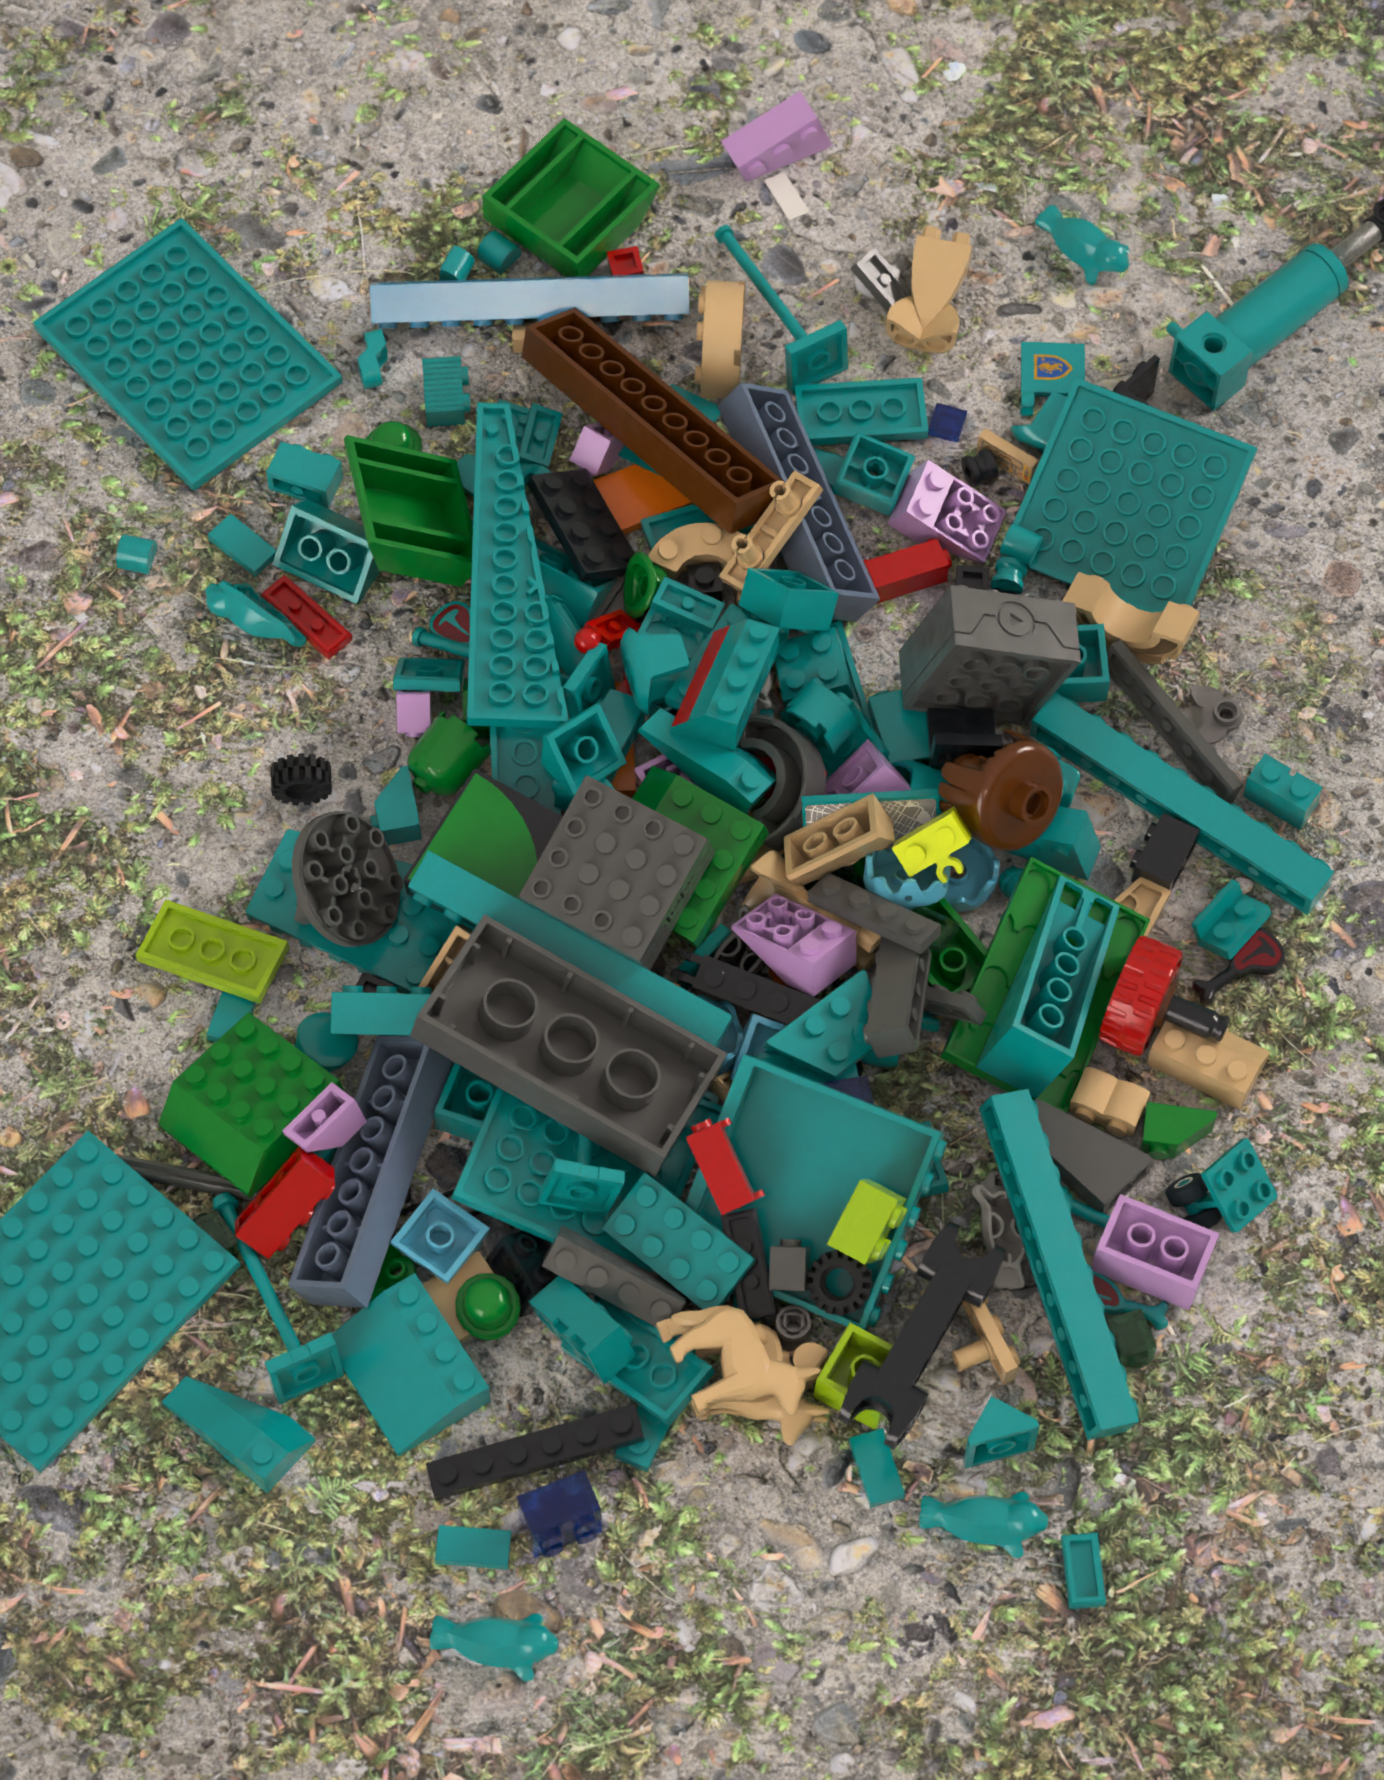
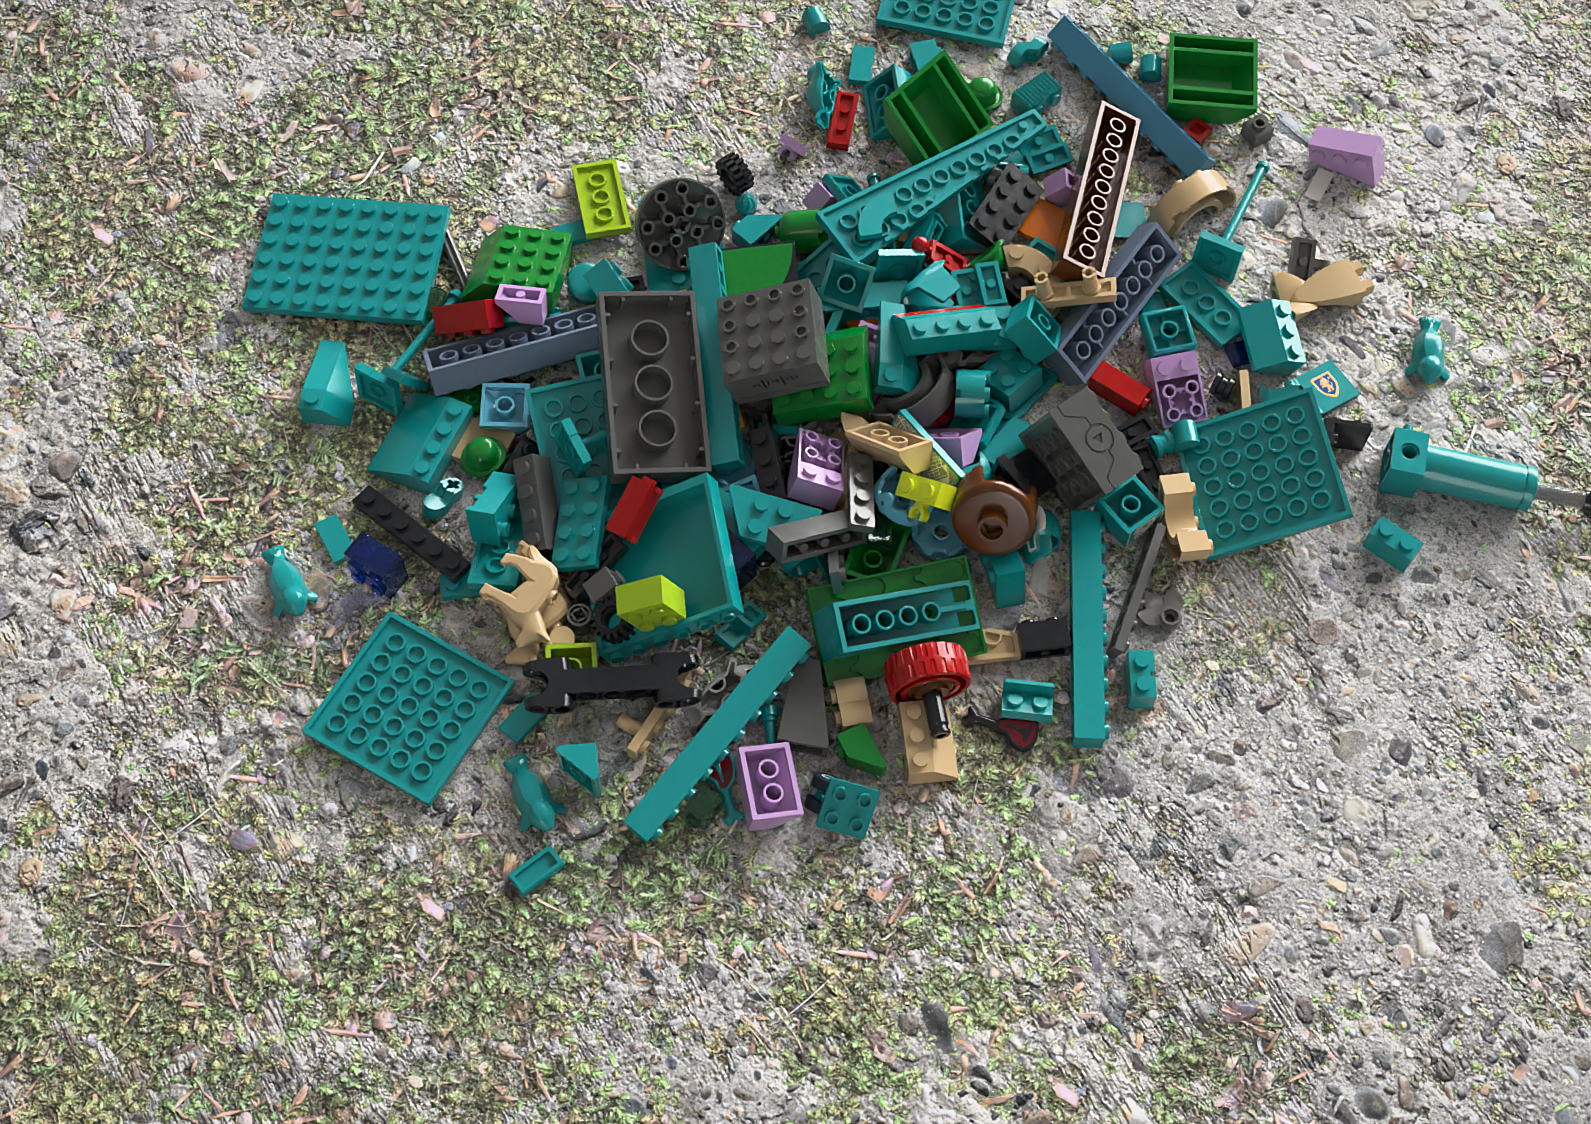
camera: 55 degrees right, 0 degrees up
(303, 693) = (792, 146): none -> lavender tile
(322, 1325) = (406, 378): none -> teal tile
(345, 796) = (746, 204): none -> teal plate
(512, 1402) = (442, 498): none -> teal piece
(519, 661) = (874, 215): none -> teal tile
(672, 205) = (1257, 130): none -> dark grey plate
(773, 1591) = (409, 708): none -> teal plate
(961, 376) = (1271, 337): none -> teal slope
(1294, 441) = (1392, 544): none -> teal brick

